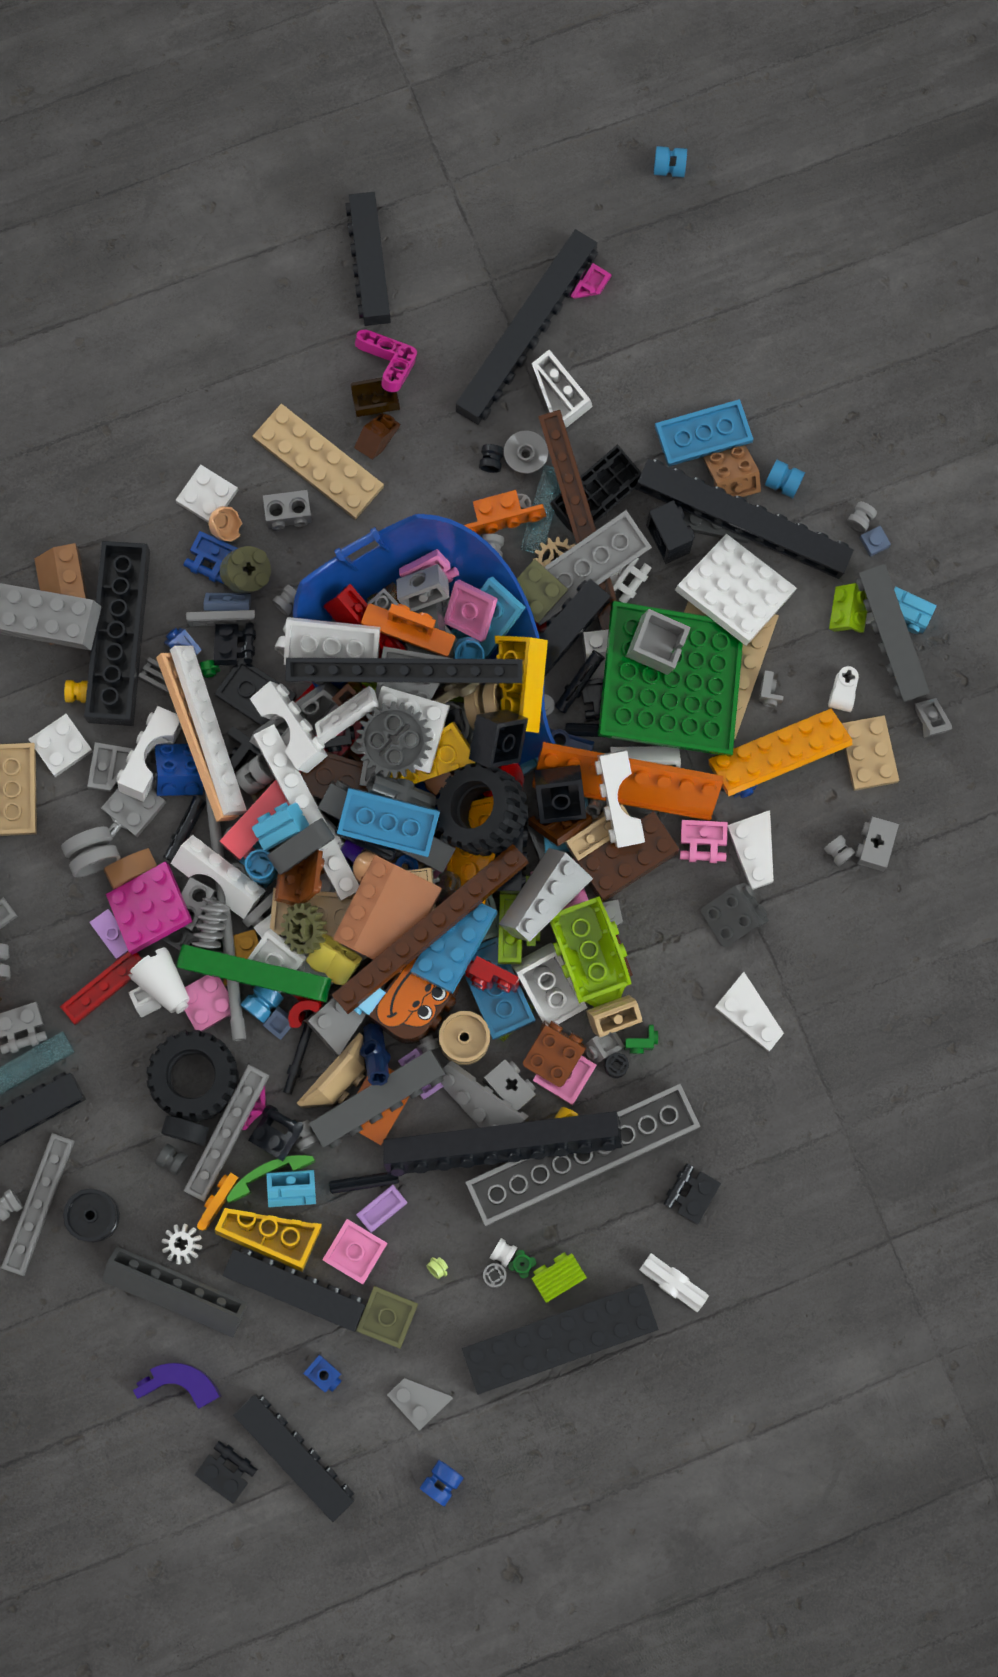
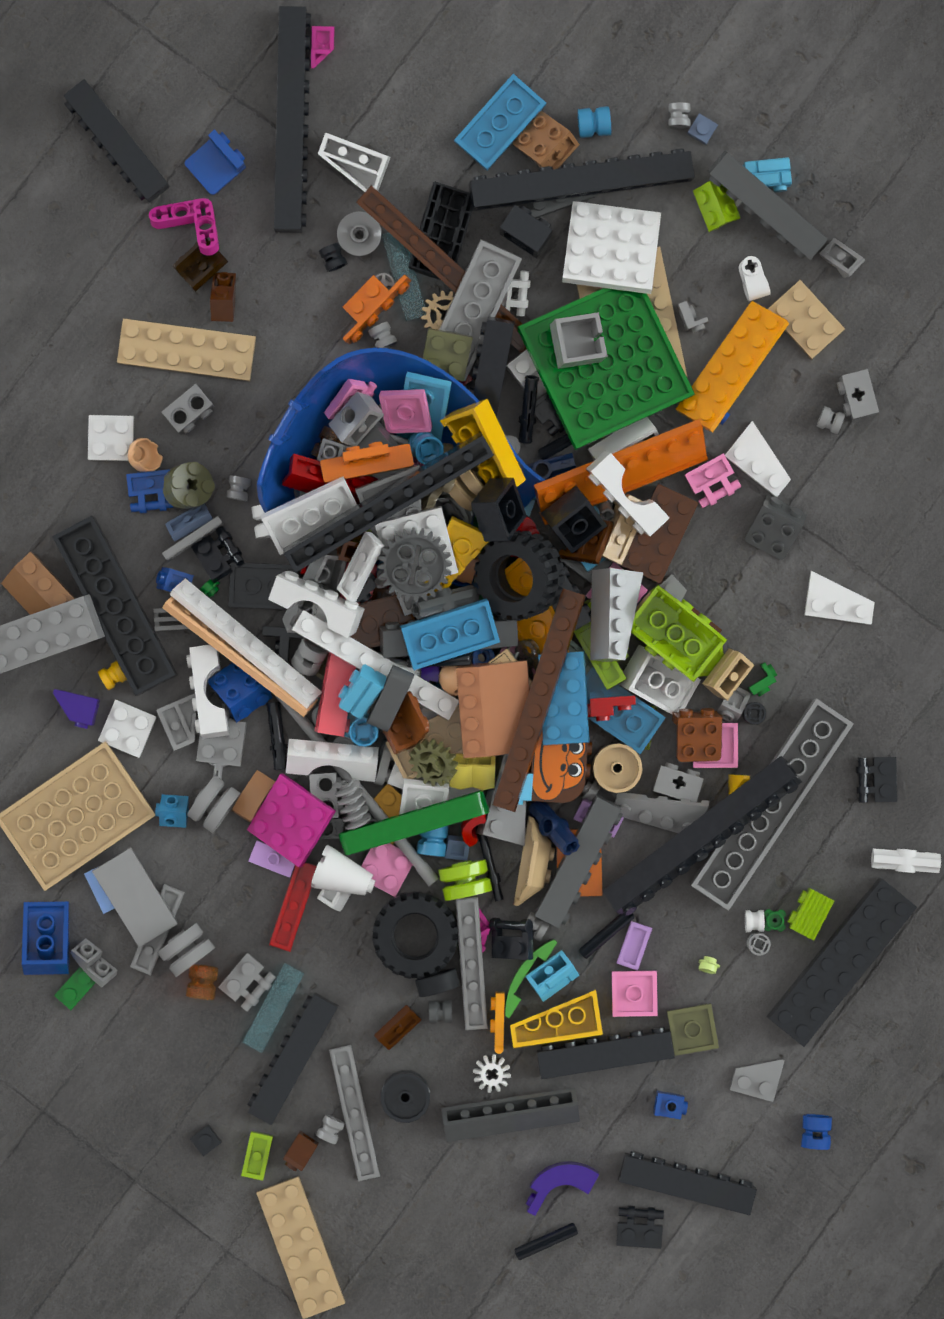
camera: 30 degrees left, 10 degrees up
(30, 701) = (78, 707): none -> dark purple slope
(51, 836) = (173, 811): none -> dark azure brick
(125, 1150) = (397, 1027): none -> reddish brown plate
(133, 1430) = (546, 1241): none -> black axle
(268, 1048) = (465, 881): none -> lime wheel
(441, 324) = (215, 163): none -> blue bracket

